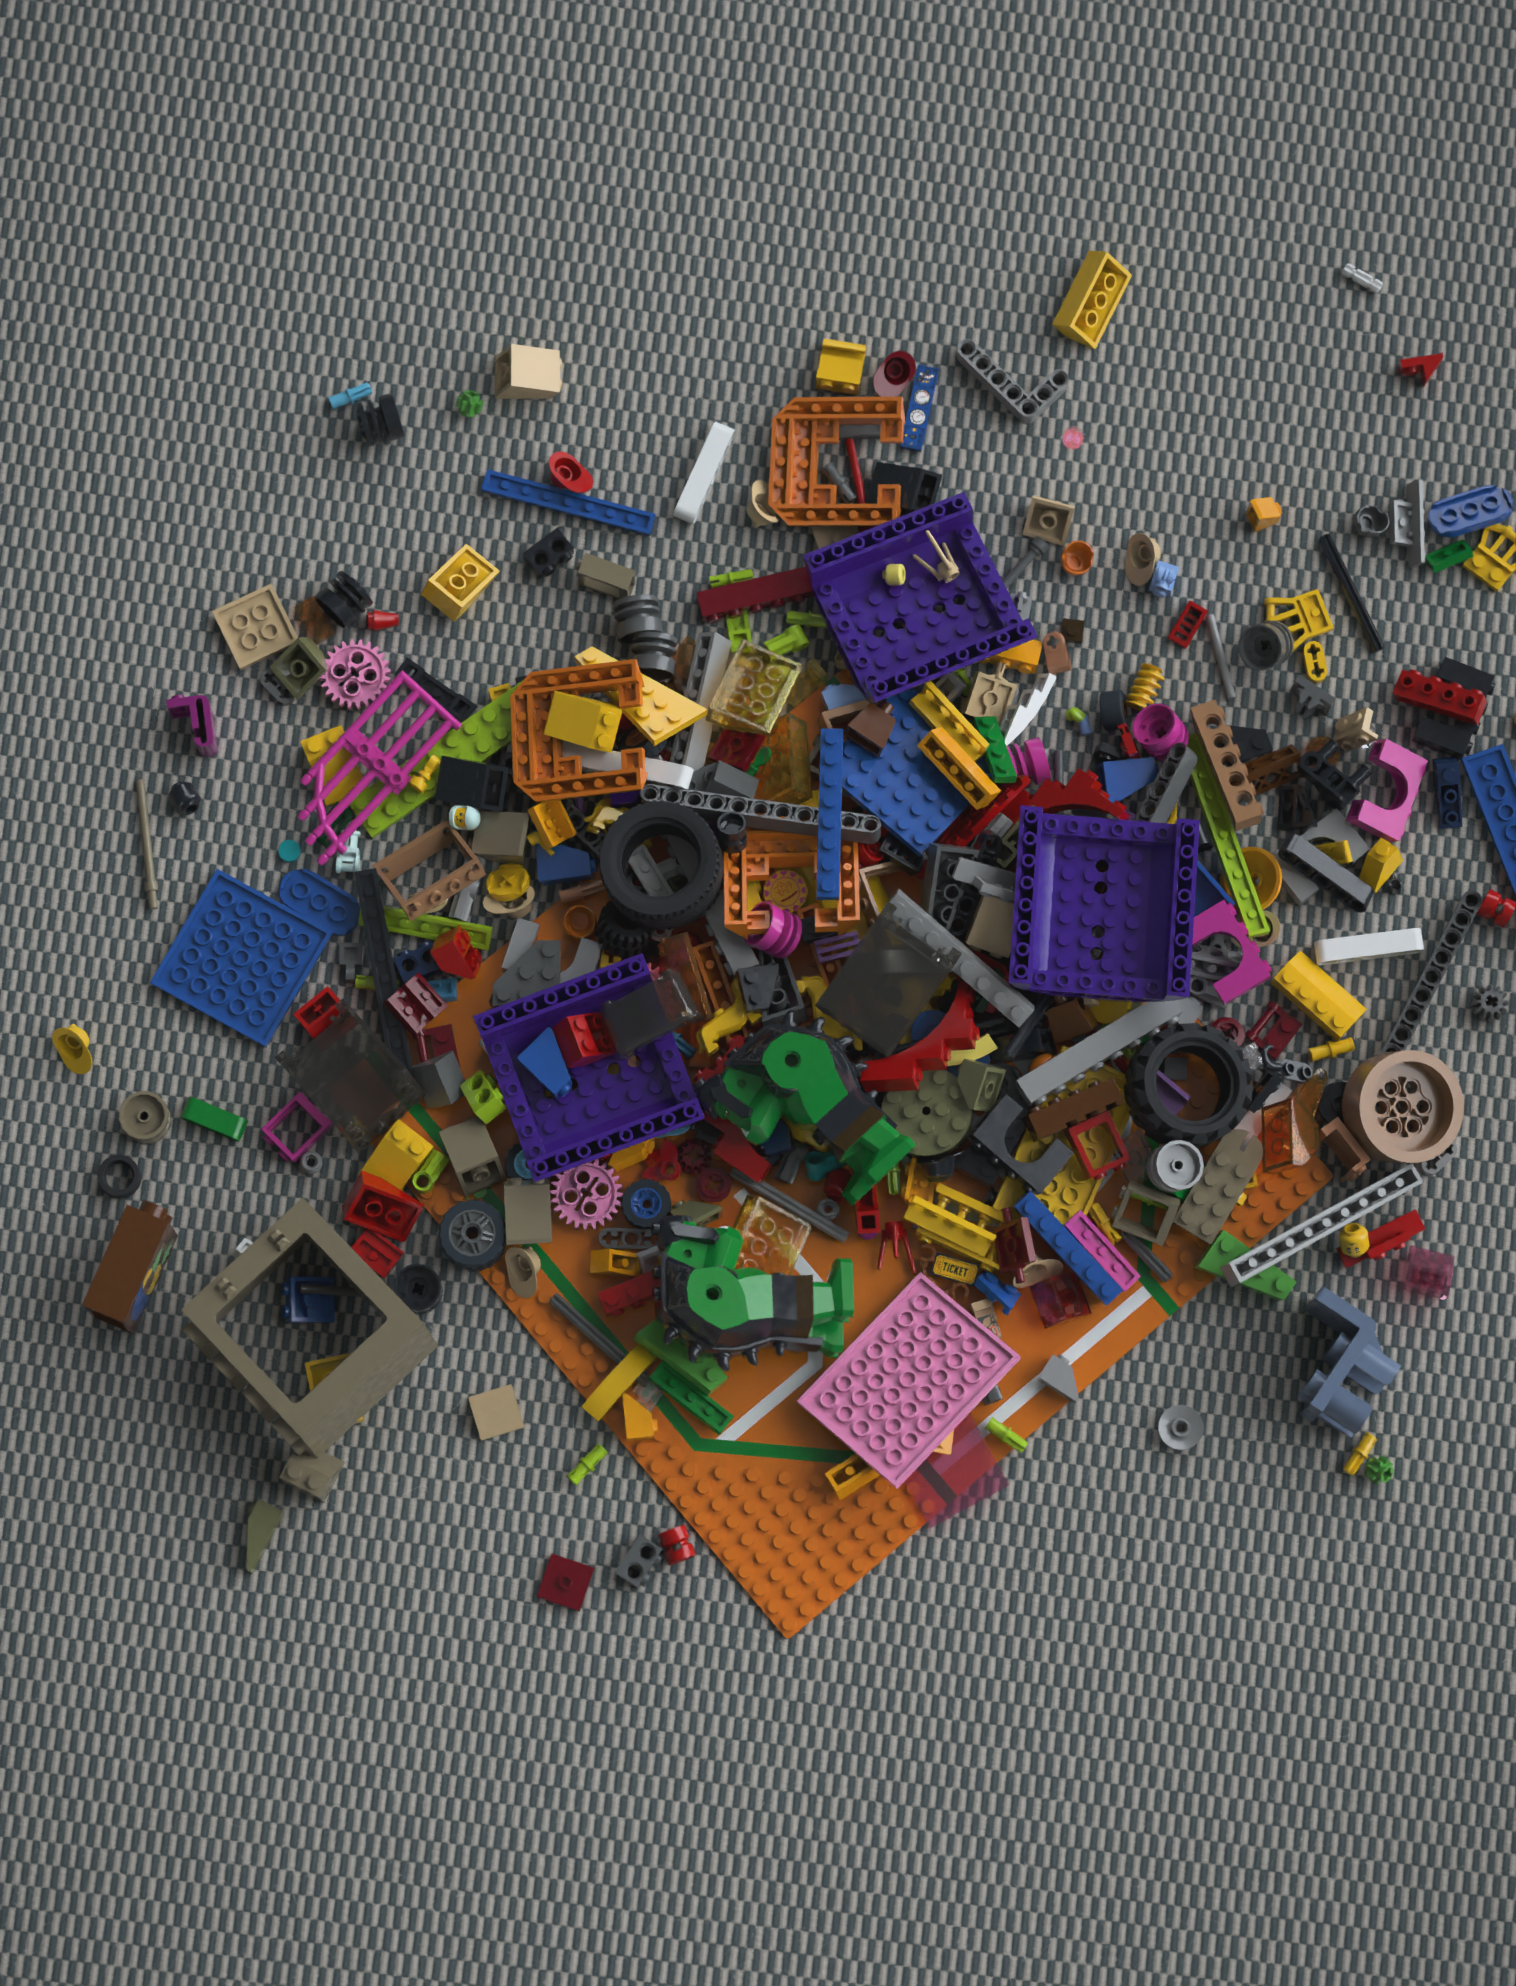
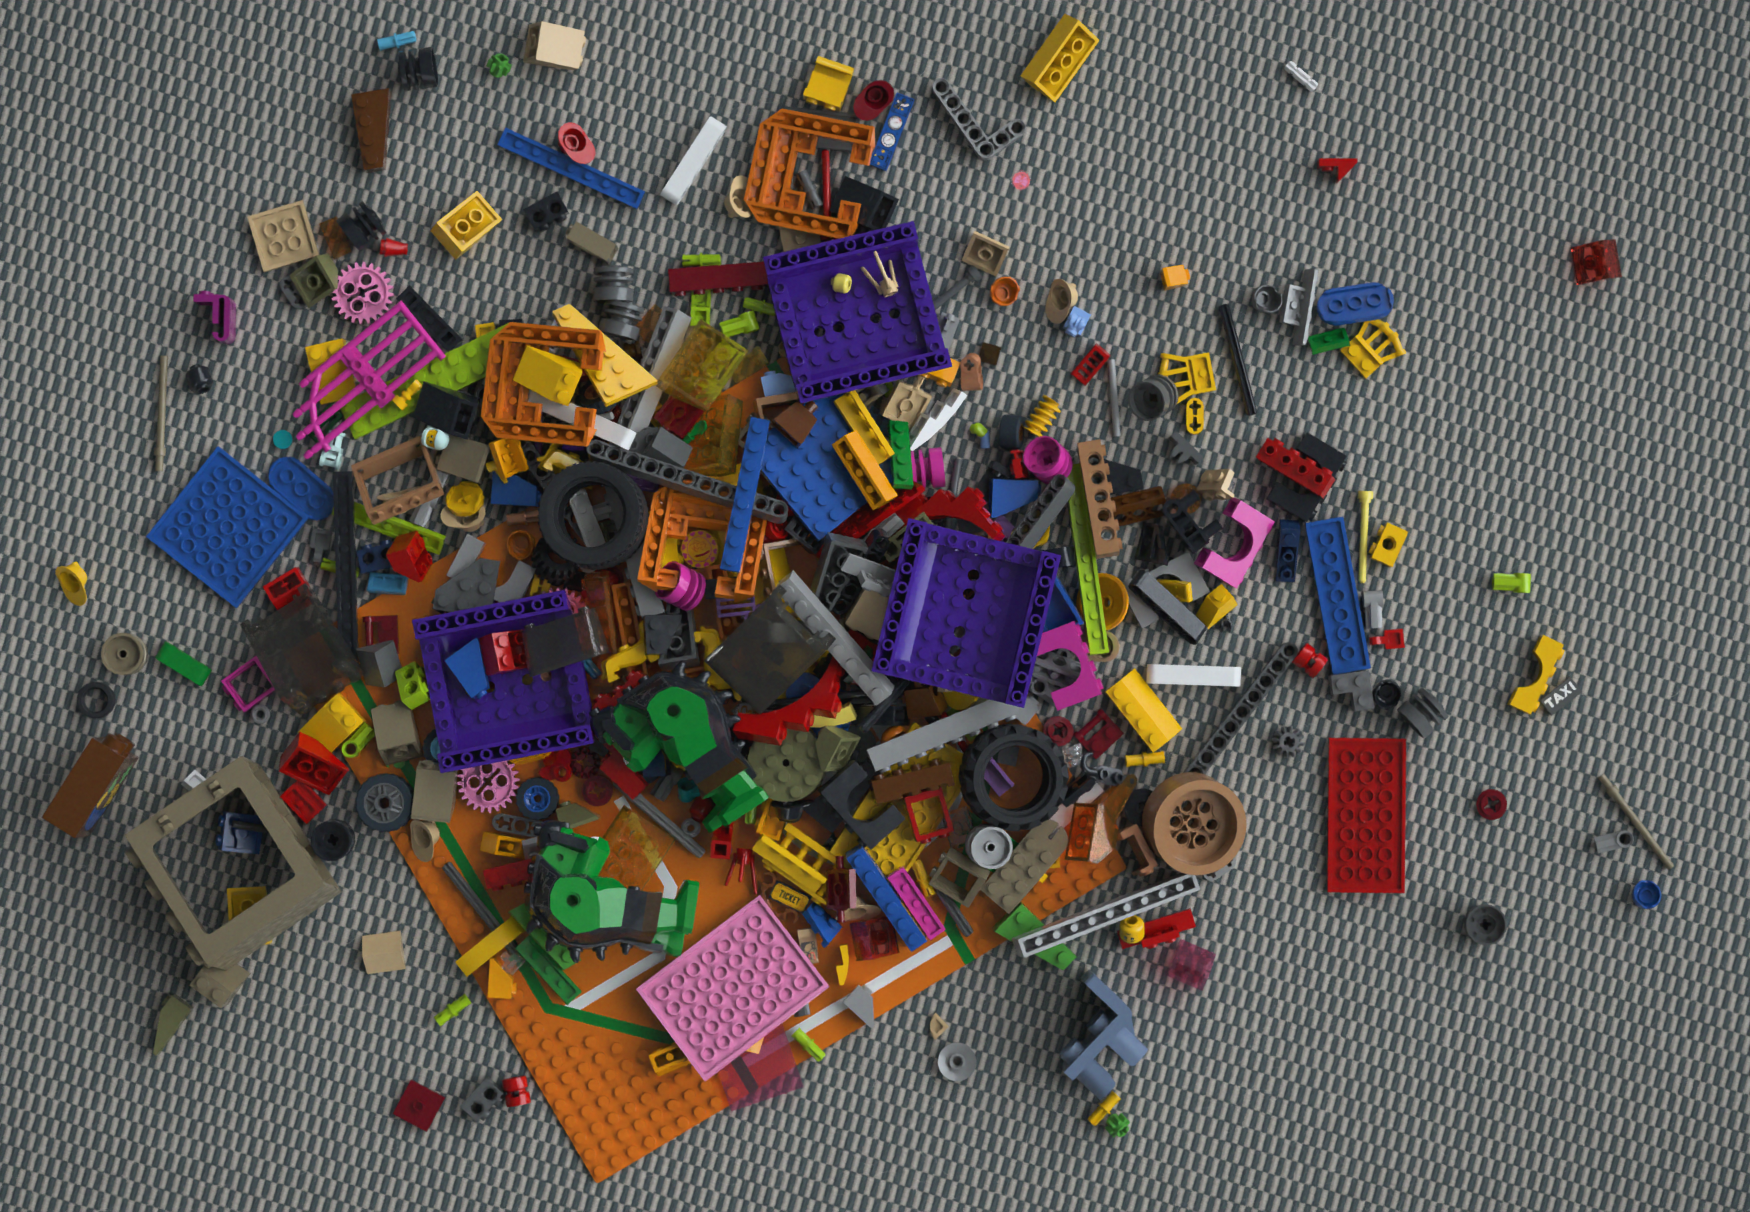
camera: 15 degrees right, 10 degrees up
(337, 486) = (372, 125): none -> reddish brown wedge
(415, 1004) = (368, 594): dark red slope -> none
(732, 832) = (659, 495): black wheel -> none
(1030, 1341) = (842, 969): none -> yellow slope
(1150, 1391) = (937, 1026): none -> tan tile

